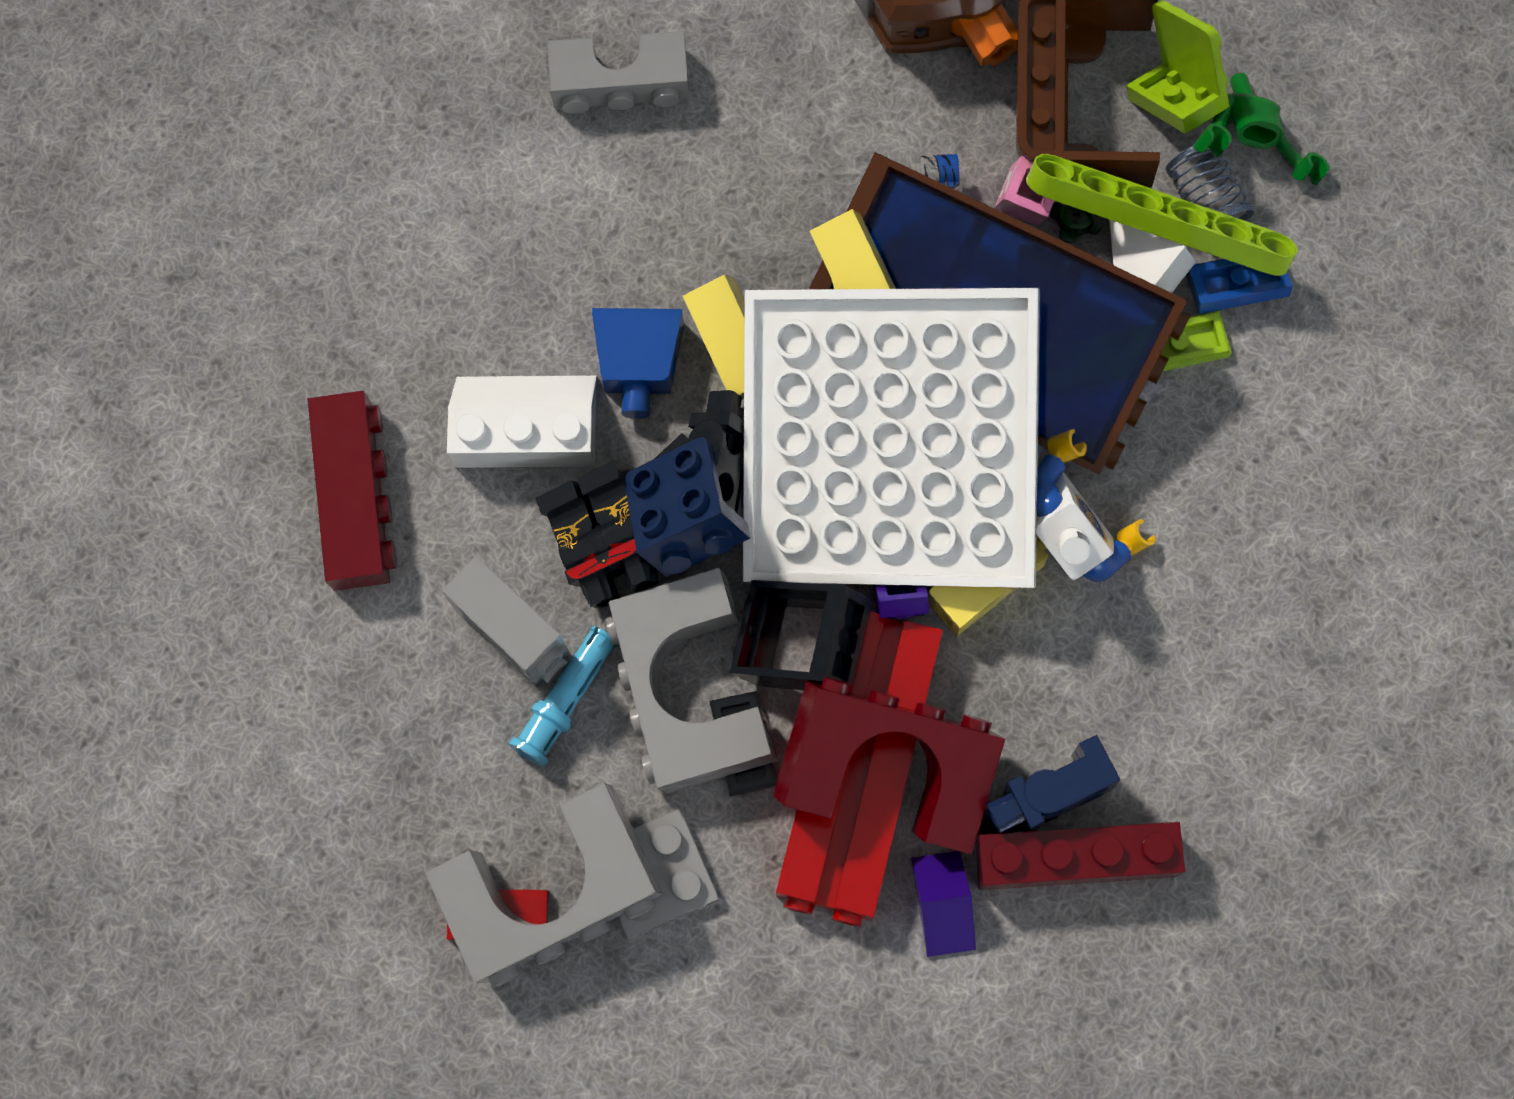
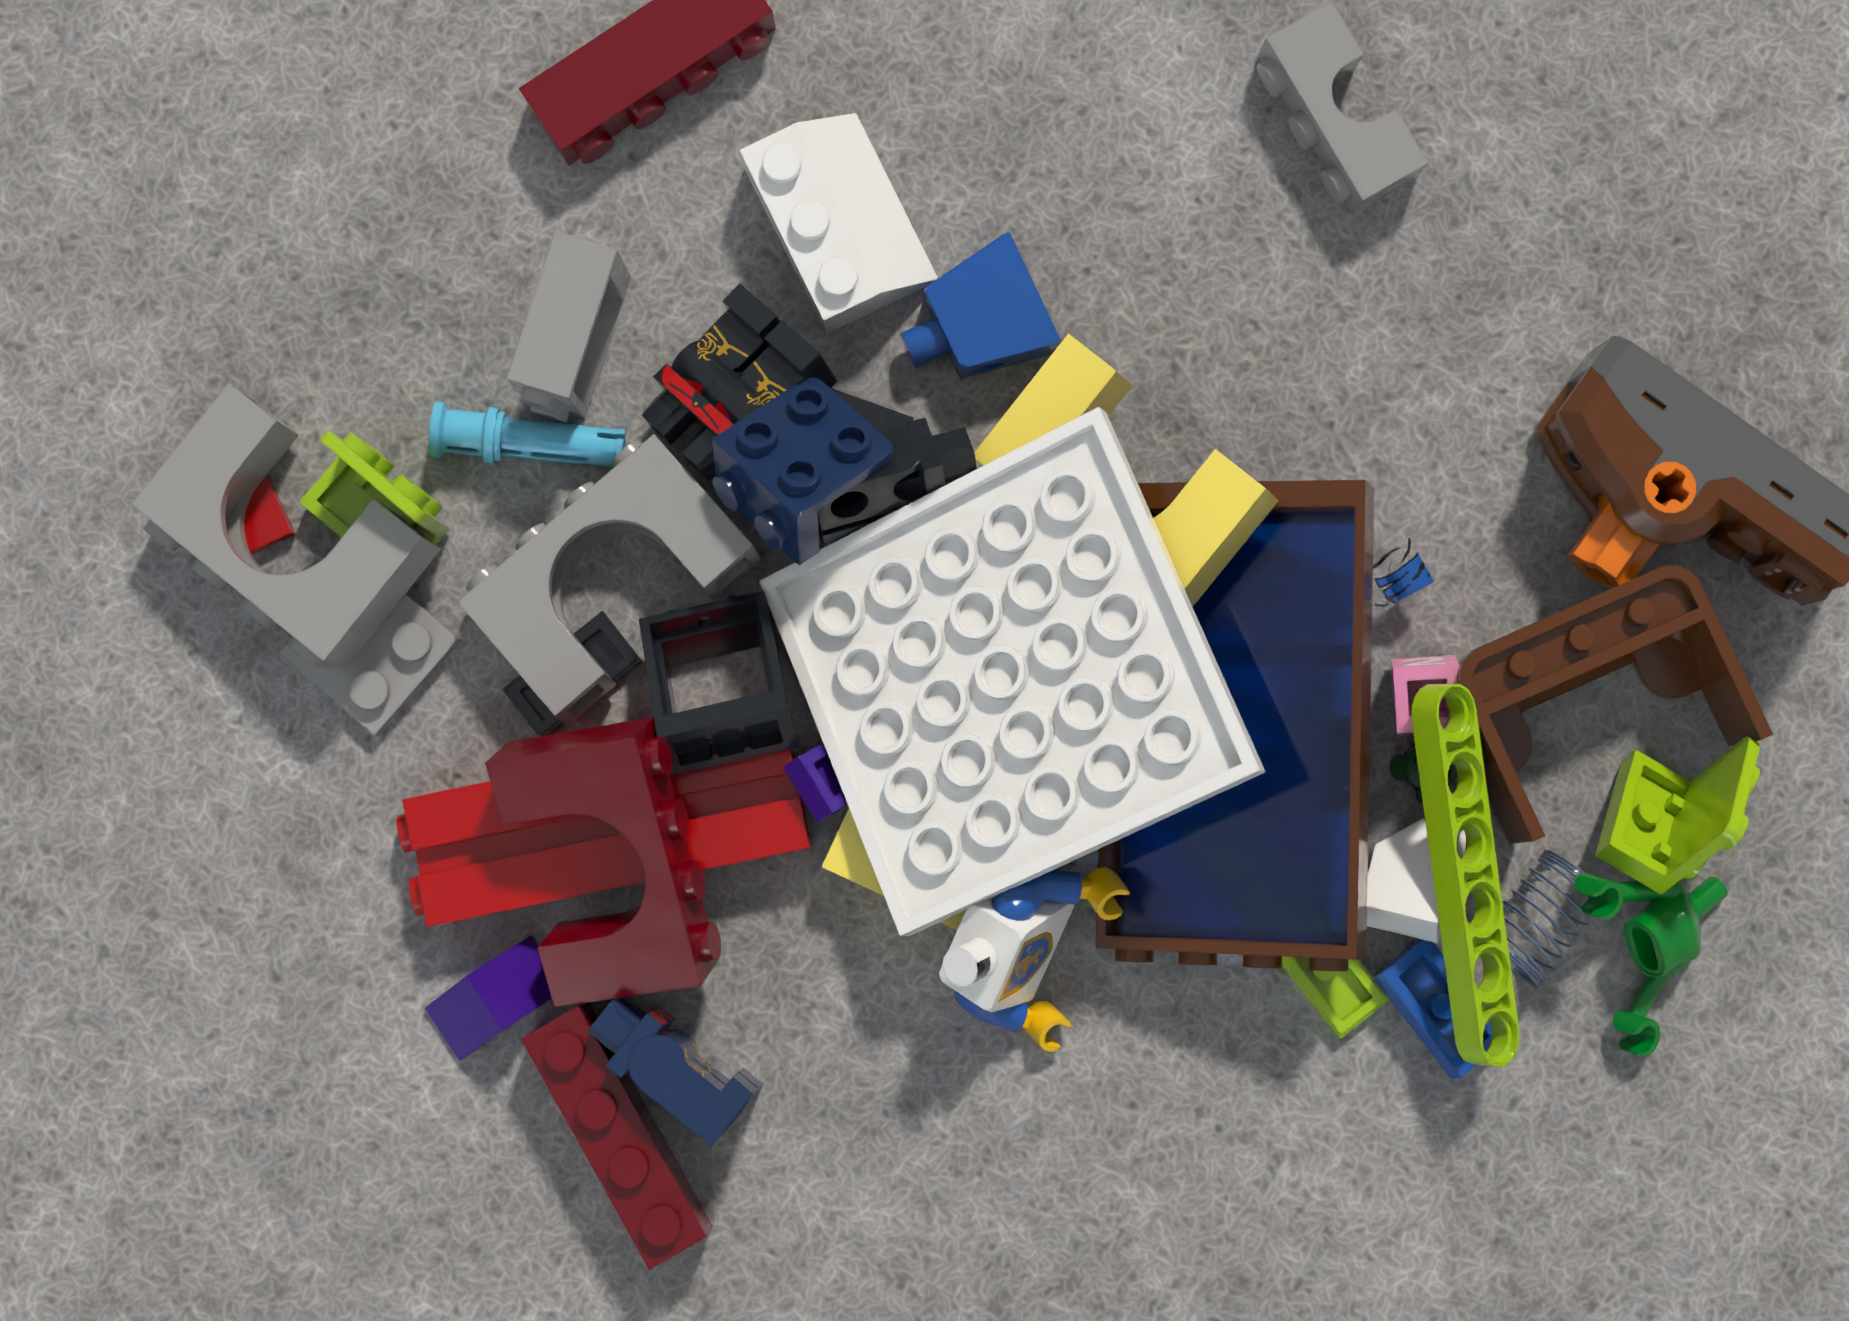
camera: 55 degrees right, 10 degrees up
(538, 819) = (358, 478): none -> lime bracket

